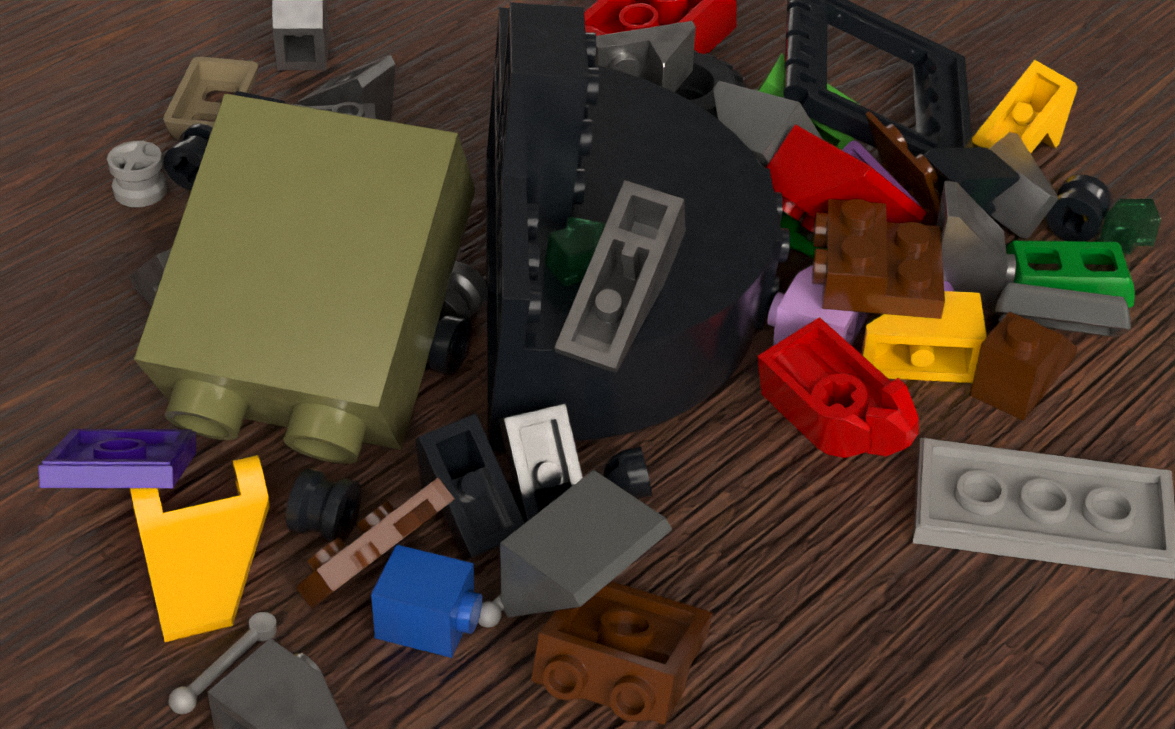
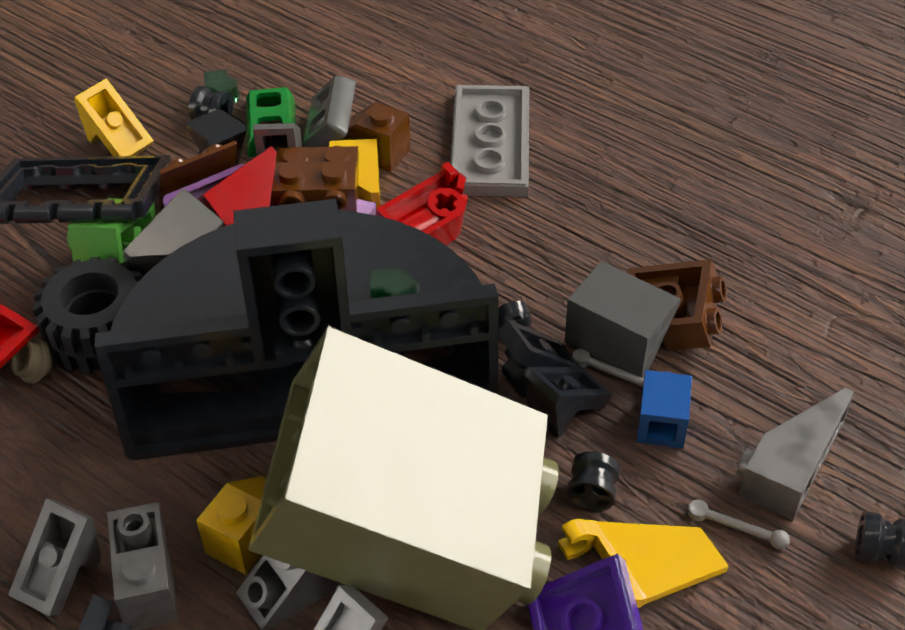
camera: 95 degrees left, 5 degrees up
(381, 532) = (633, 434): reddish brown wing -> none
(623, 276) = (423, 252): flat silver slope -> none
(652, 53) = (91, 292): flat silver slope -> none
(1029, 199) = (171, 136): flat silver slope -> none

